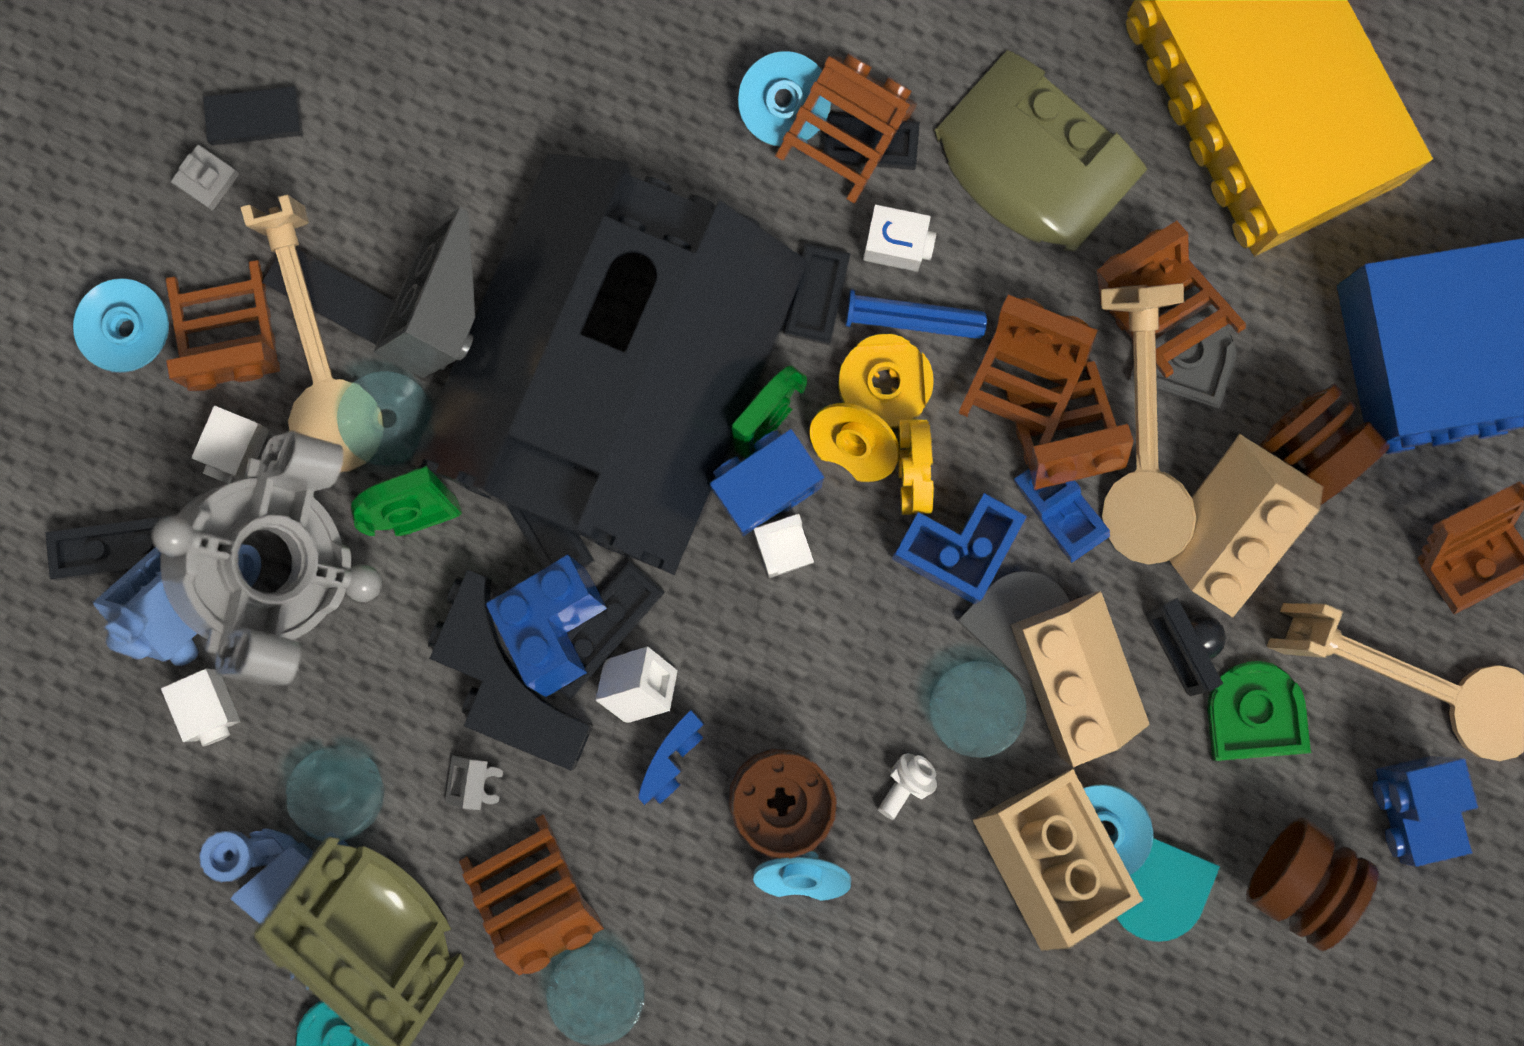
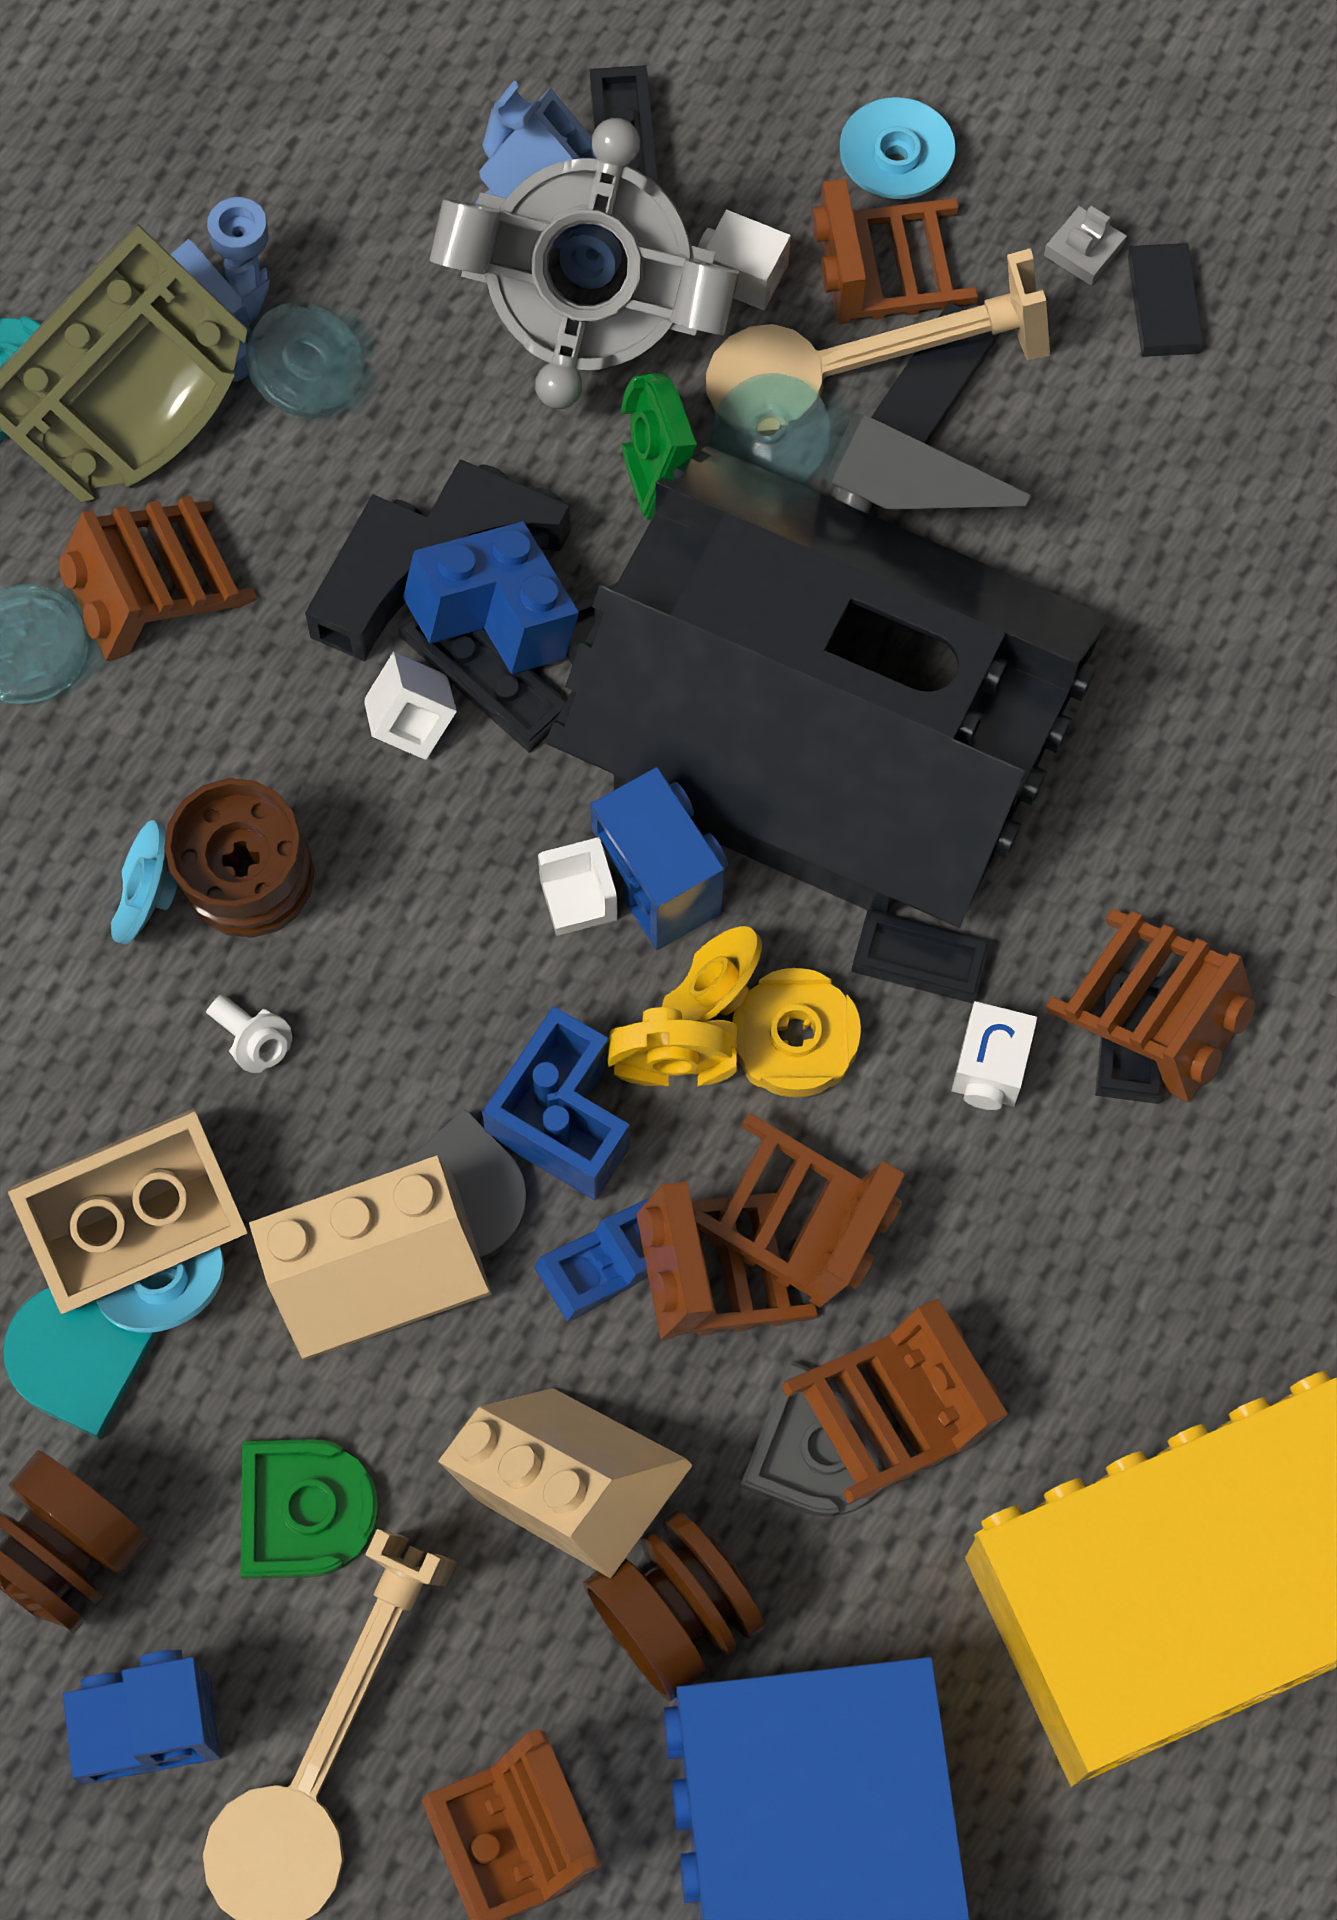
camera: 90 degrees right, 15 degrees down
(201, 707) = (412, 219): white brick -> none
(467, 783) = (304, 508): light grey tile -> none
(661, 773) = (302, 730): blue slope -> none
(758, 89) = (1191, 889): medium azure dish -> none
(767, 410) = (762, 867): green tile -> none
(915, 316) = (886, 1072): blue axle -> none
(977, 709) = (342, 1125): clear light blue tile -> none
(1036, 155) = (1112, 1257): olive slope -> none
(1147, 509) = (609, 1358): tan piece -> none
(1189, 645) = (413, 1427): black tile -> none

